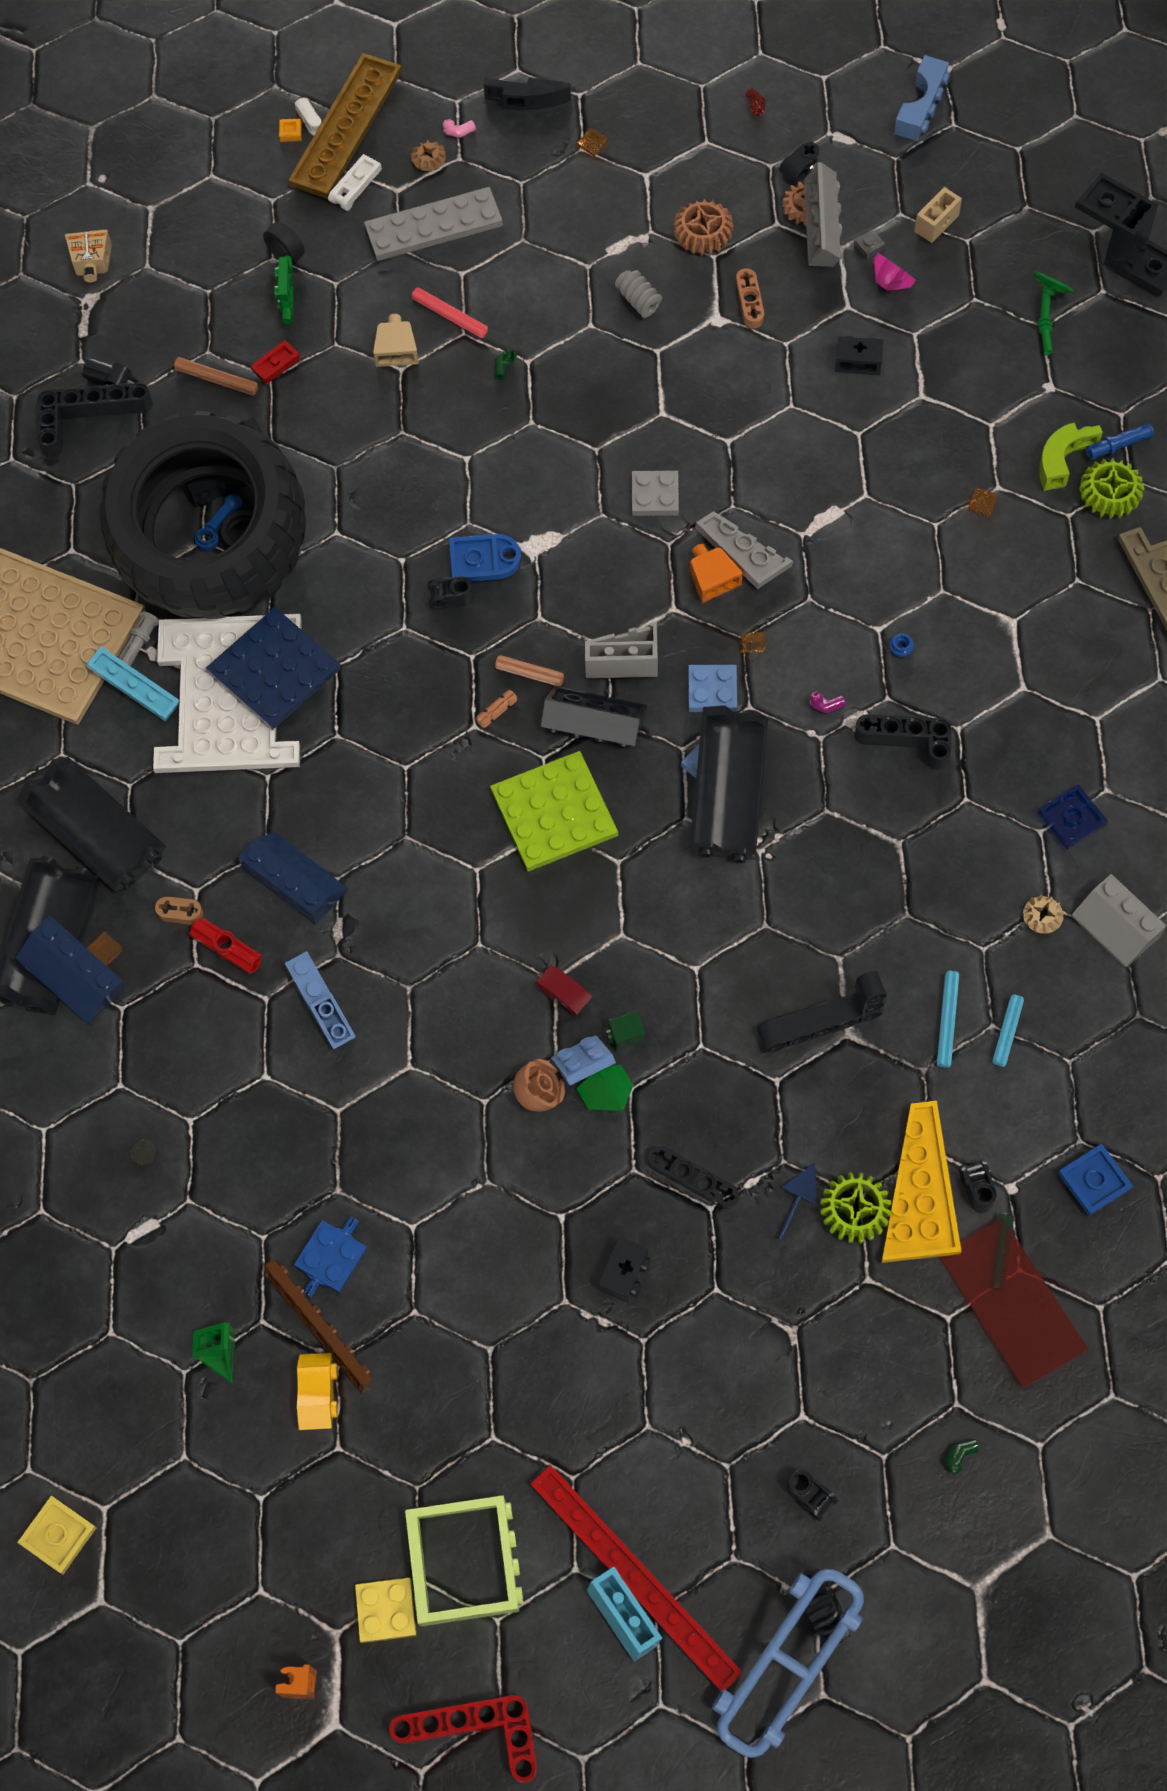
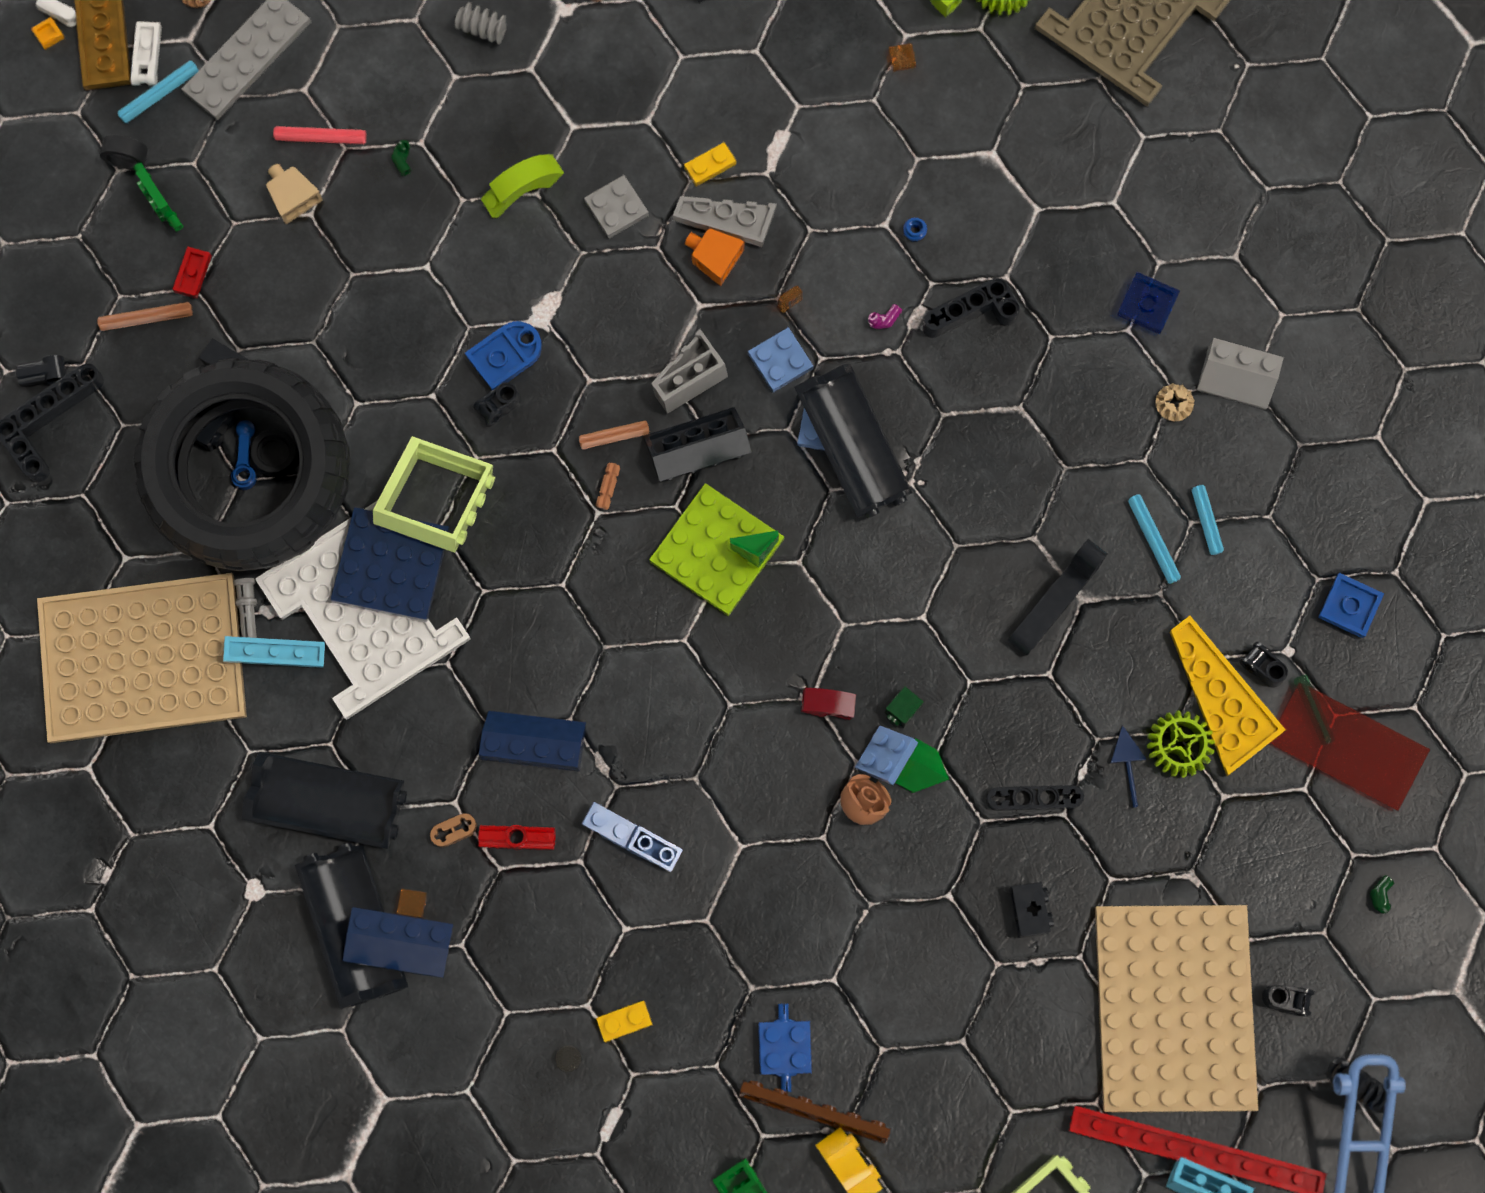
camera: 35 degrees left, 10 degrees up
(211, 1151) = (624, 1021): none -> yellow plate
(330, 601) = (444, 458): none -> yellowish green window
(344, 215) = (157, 91): none -> medium azure axle
(586, 822) = (755, 547): none -> green slope
(587, 425) = (519, 179): none -> lime arch
(700, 1439) = (1175, 1008): none -> tan plate
(757, 501) = (710, 164): none -> yellow plate

